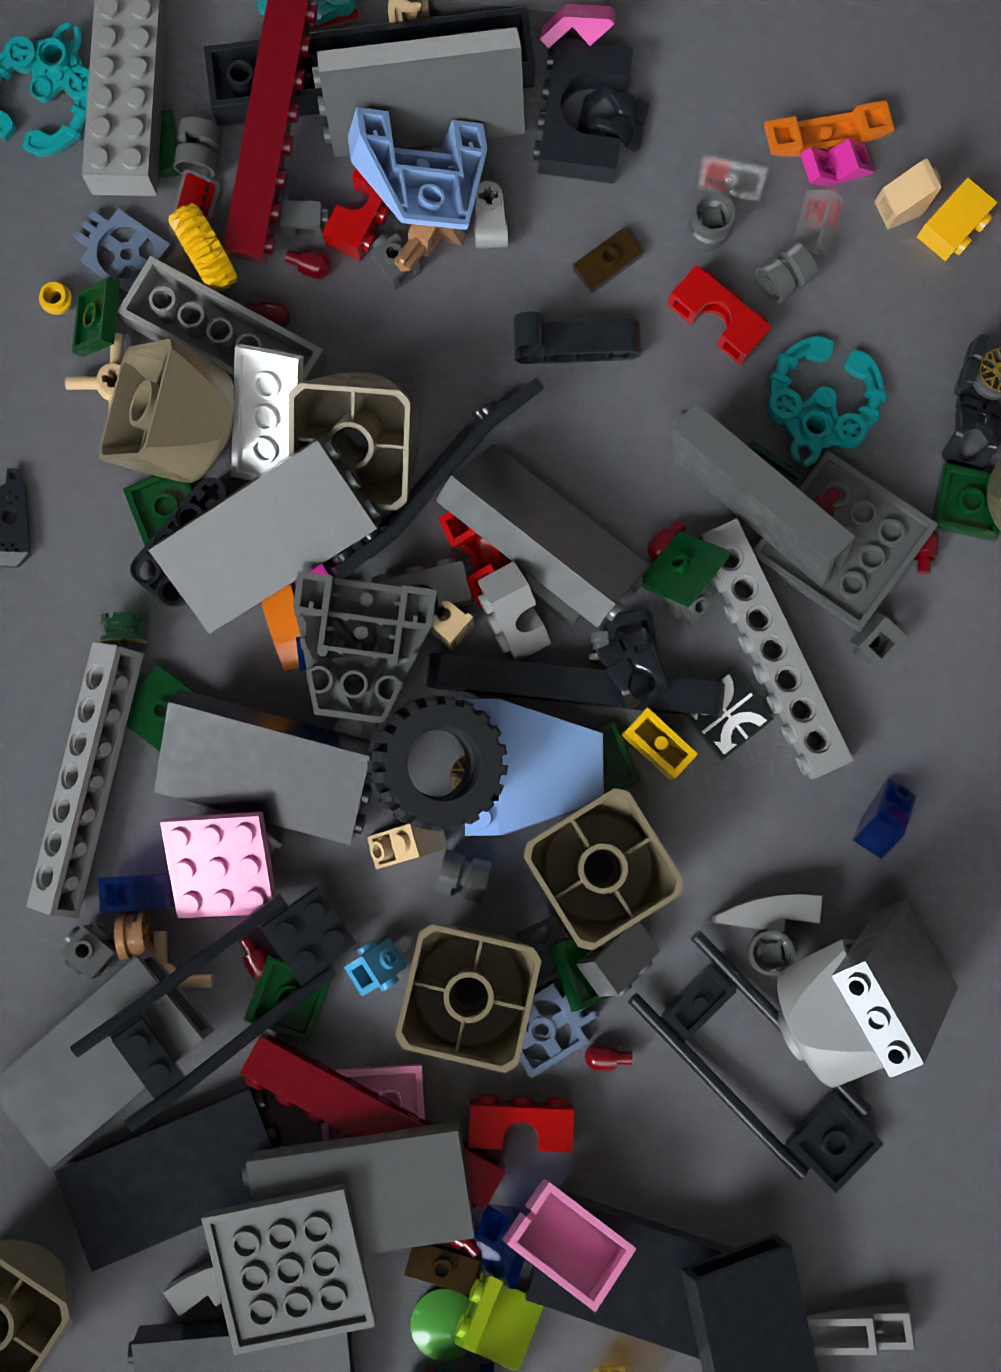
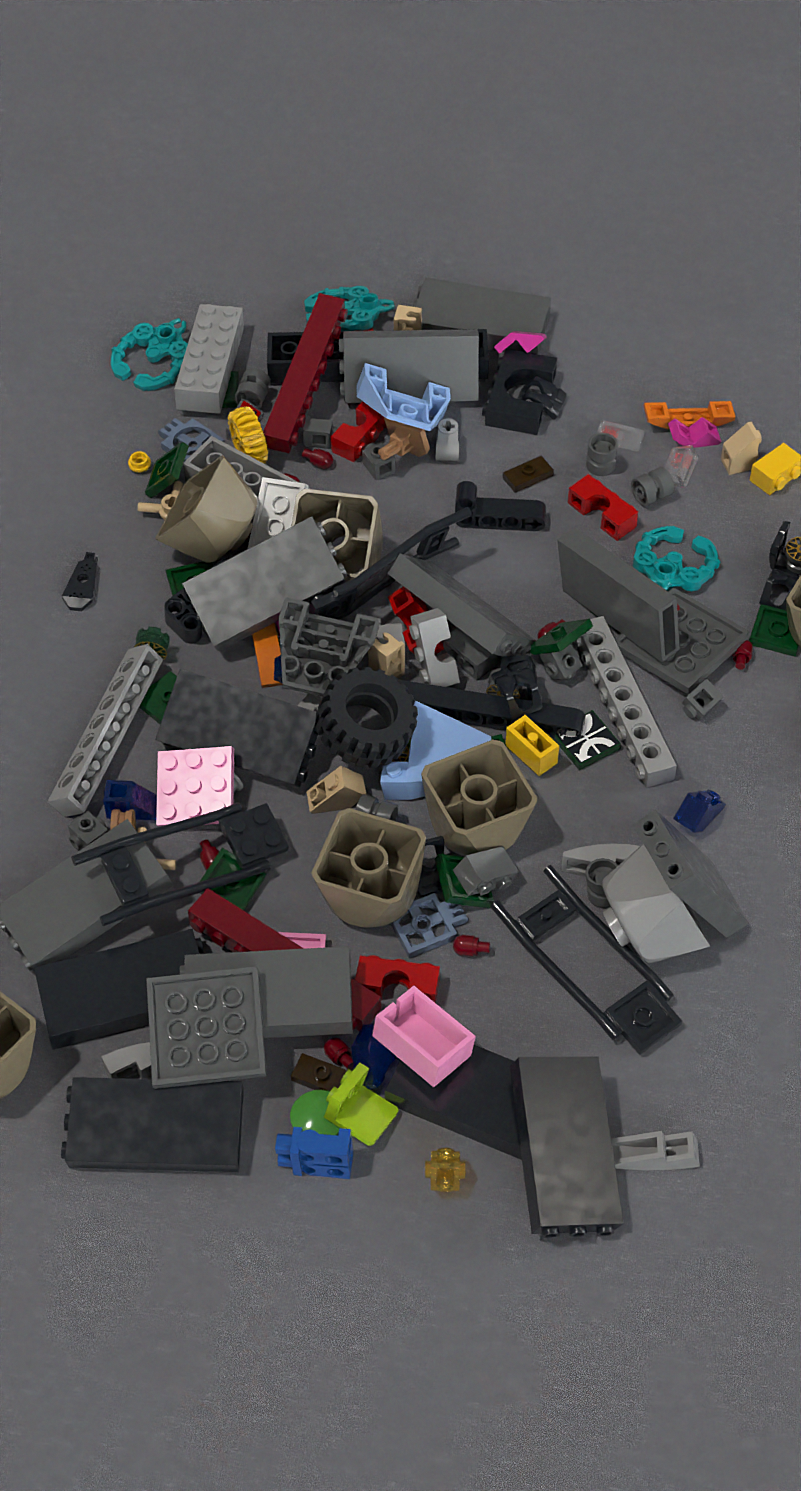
camera: 10 degrees right, 30 degrees down
(375, 966) = (298, 862): dark azure brick -> none

